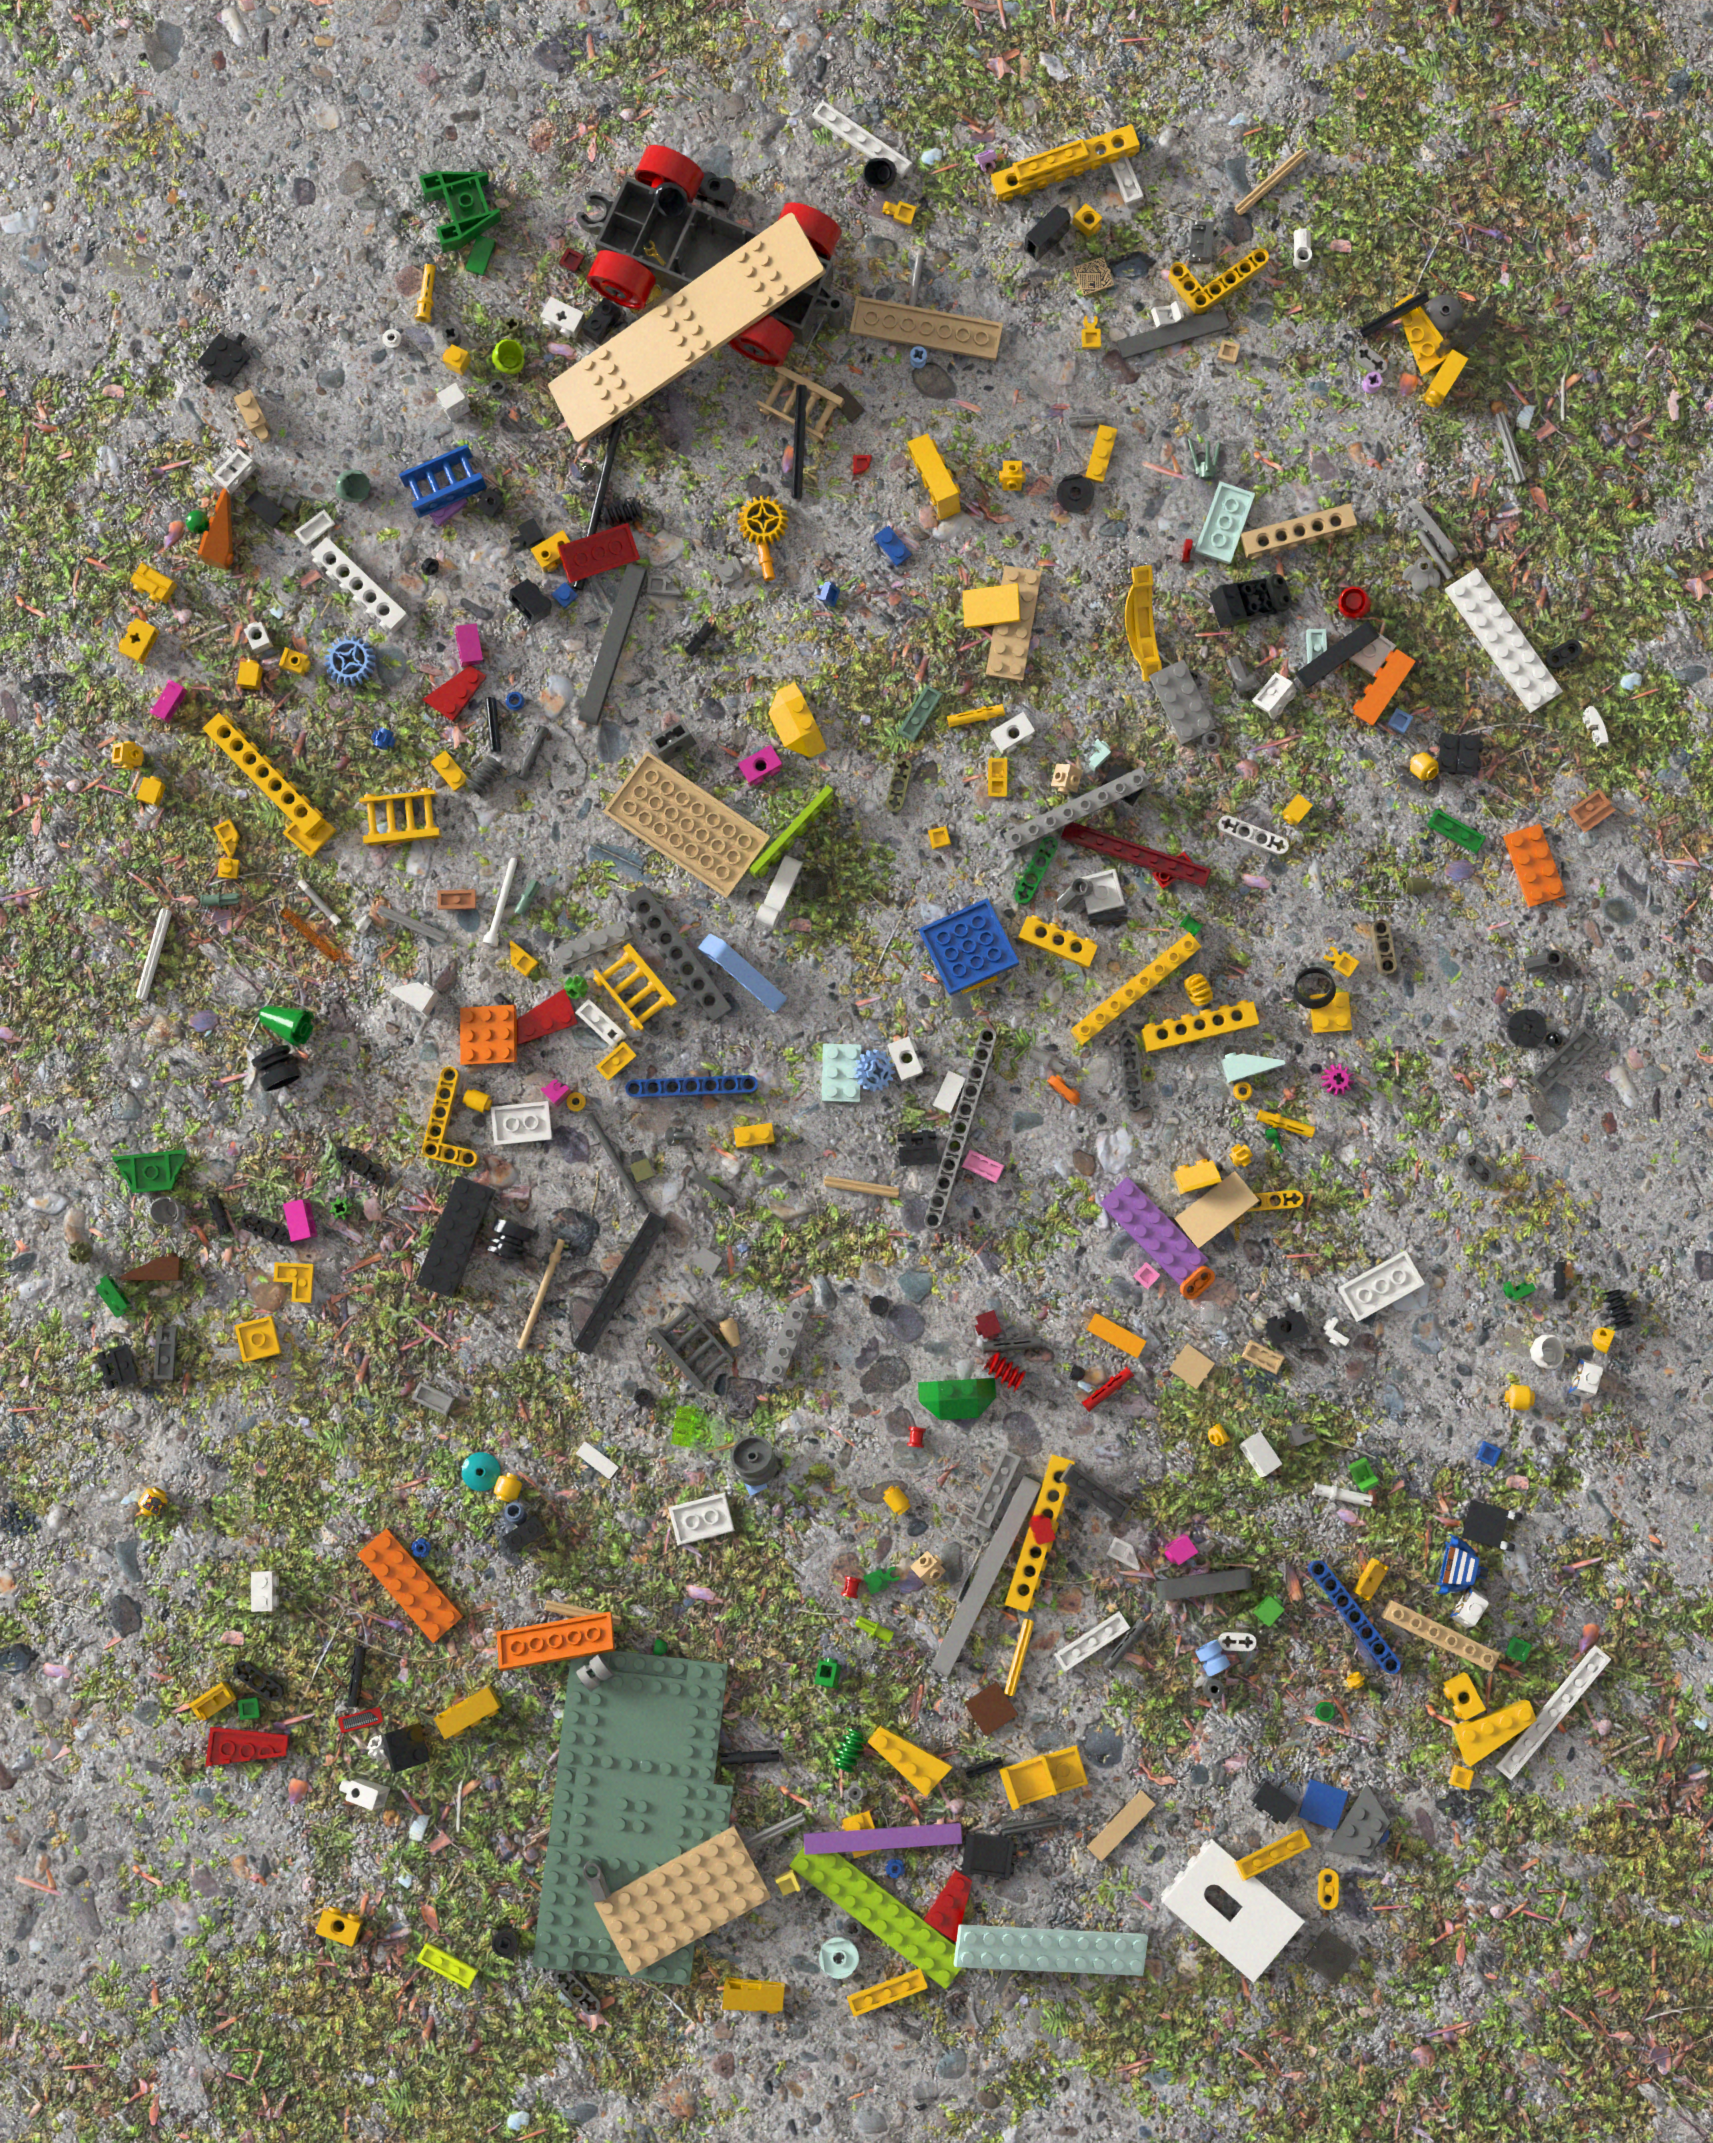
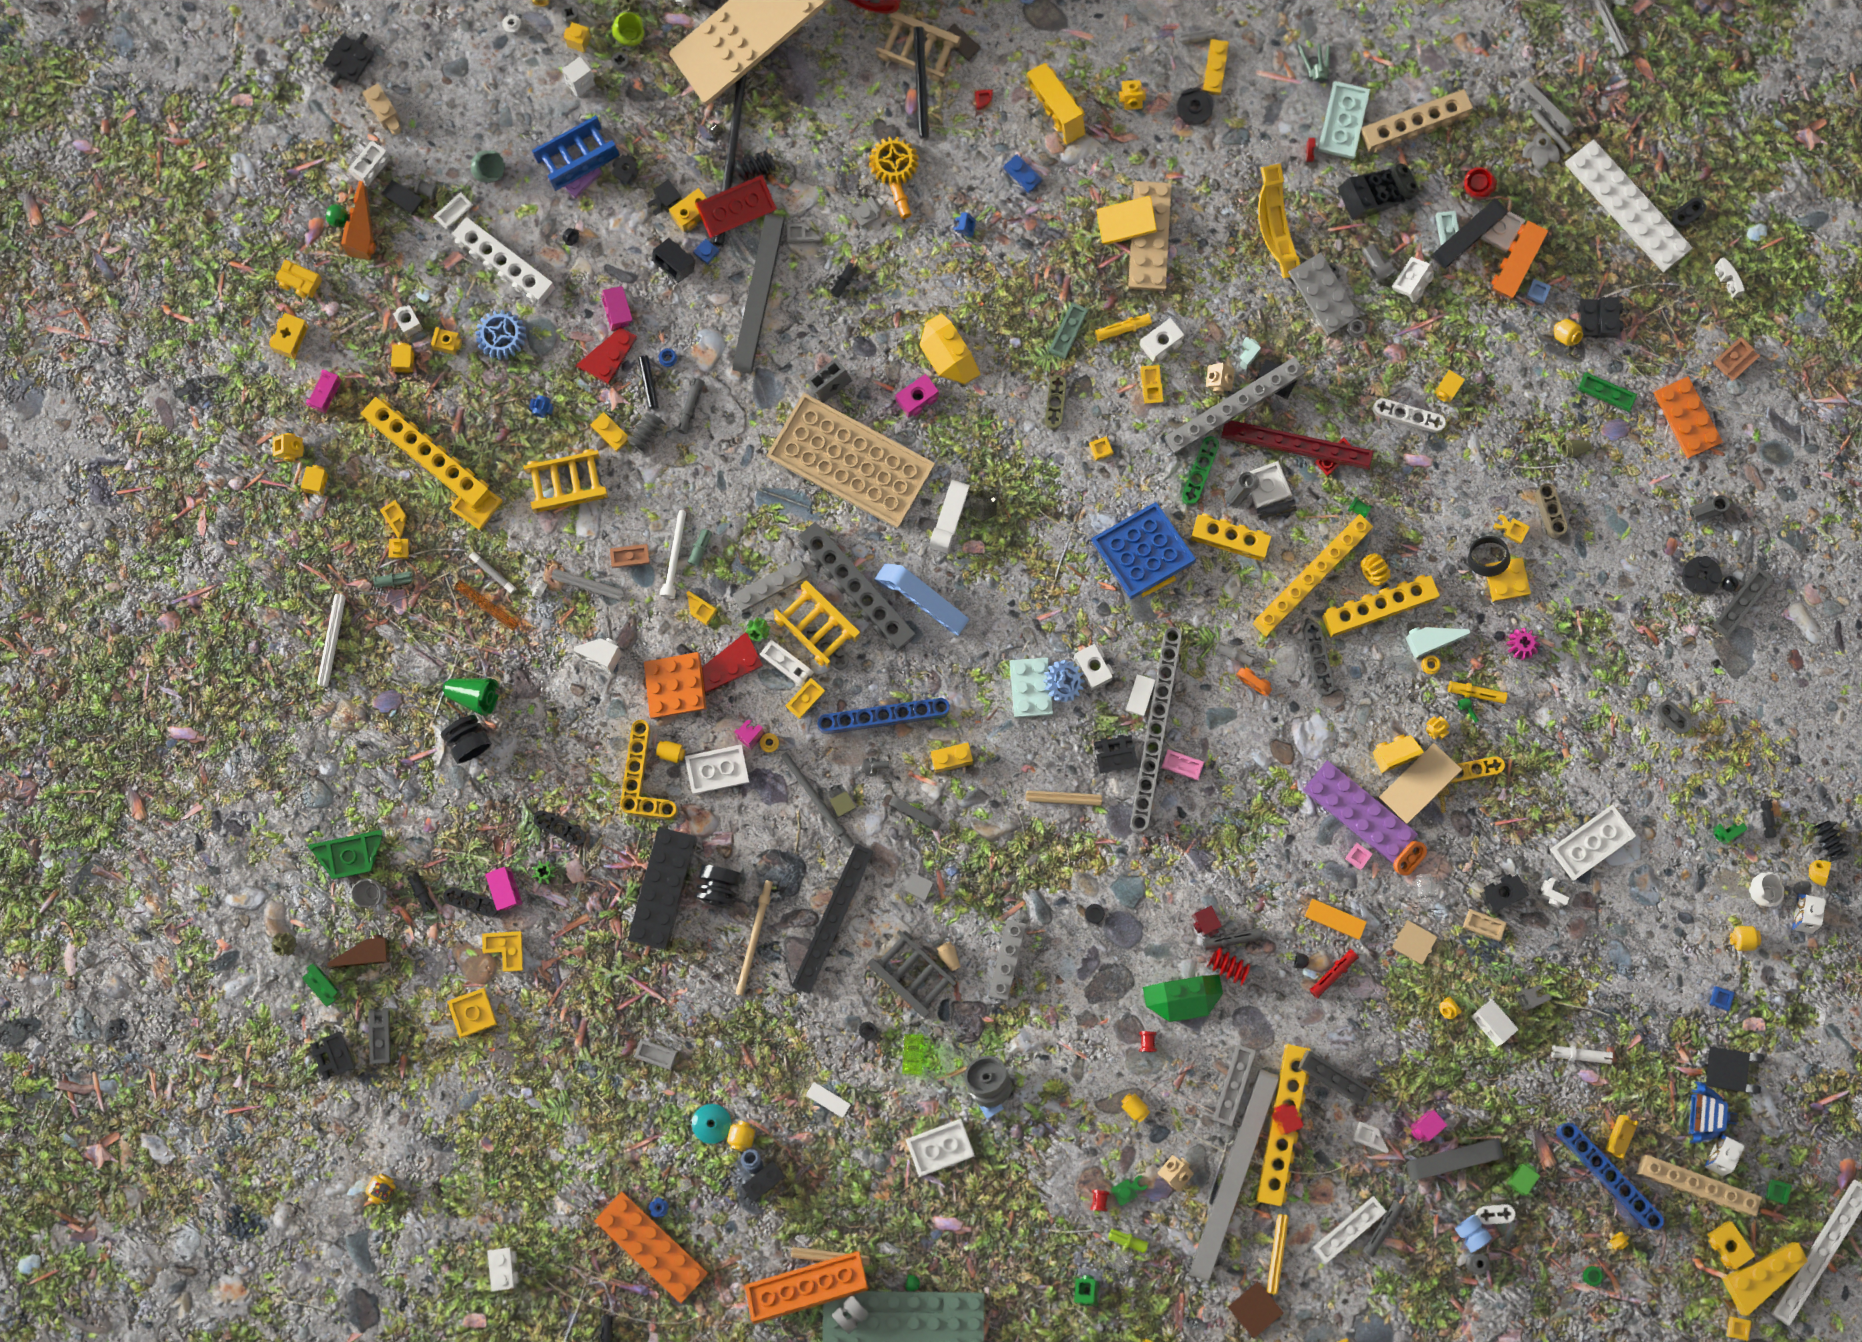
camera: 10 degrees left, 5 degrees down
(797, 827) = (959, 453): lime plate -> none
(1363, 1475) = (1600, 1032): bright green bracket -> none

